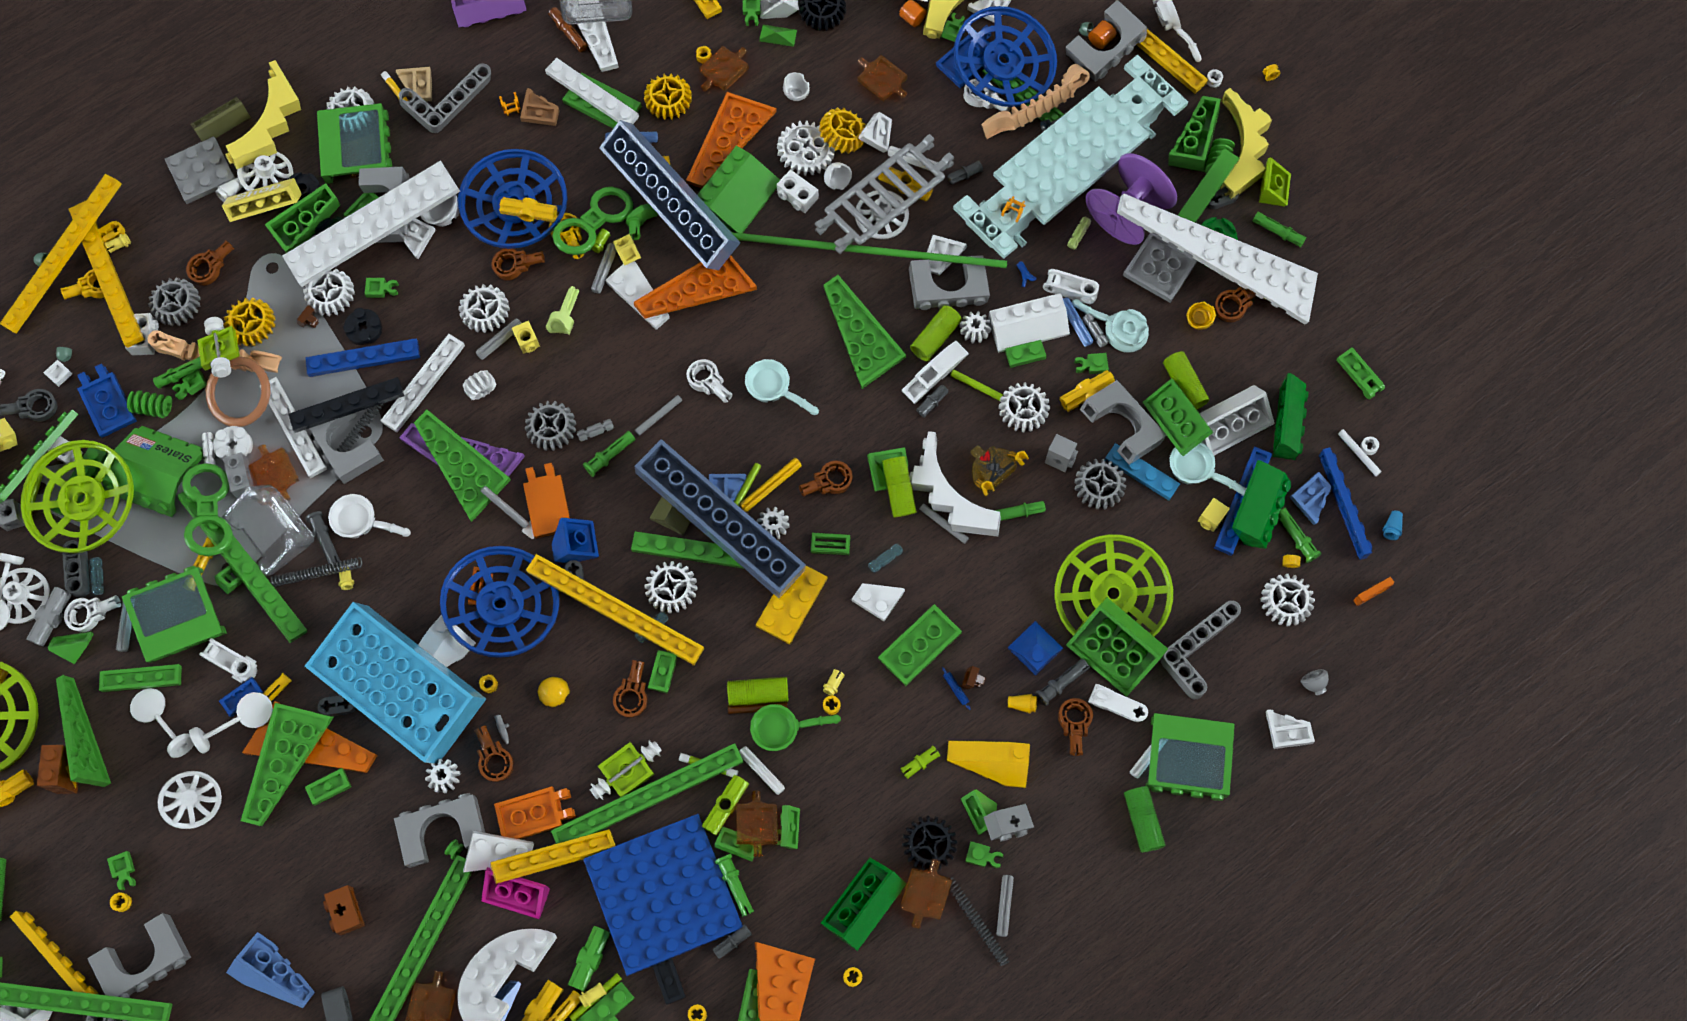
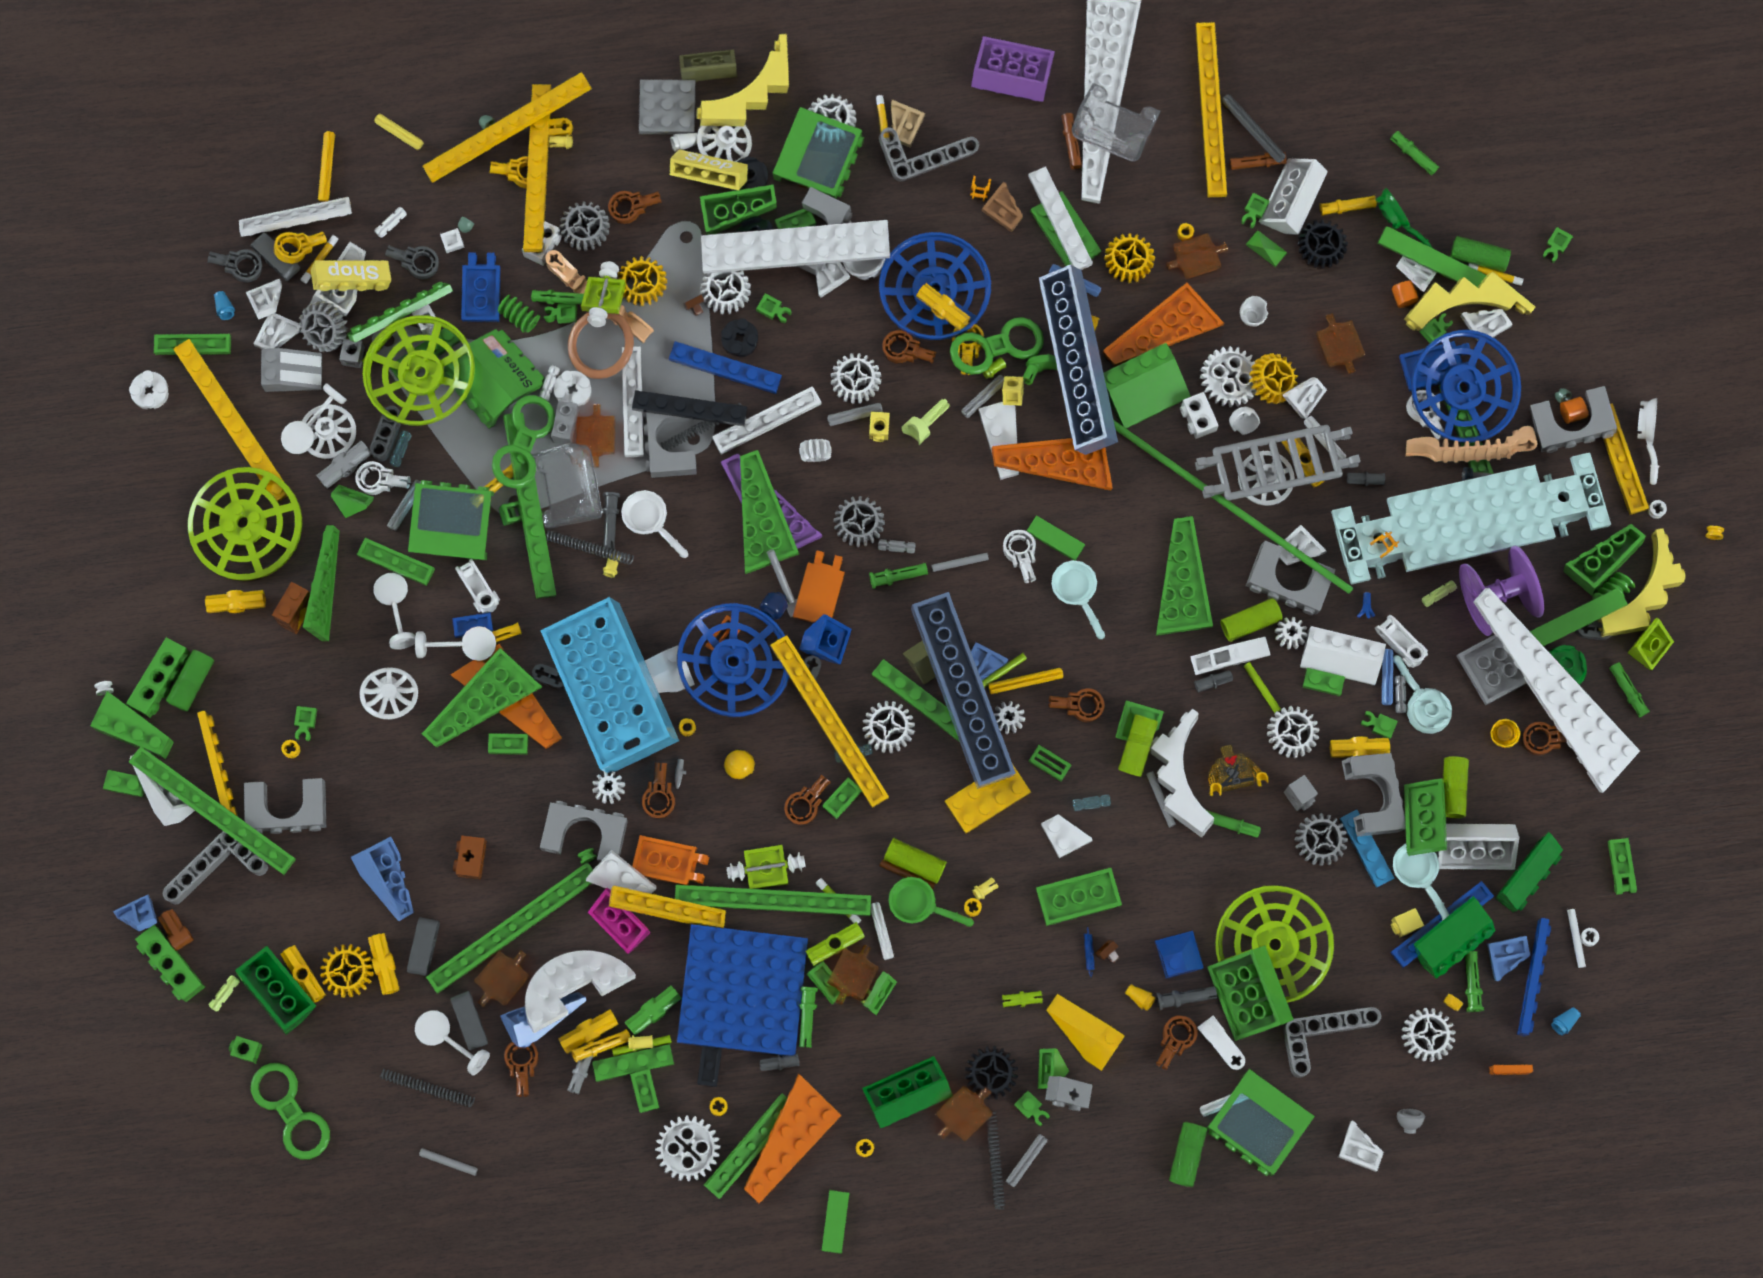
camera: 25 degrees right, 5 degrees up
(512, 535) = (774, 605): none -> dark blue head
(731, 352) = (1055, 538): none -> bright green tile

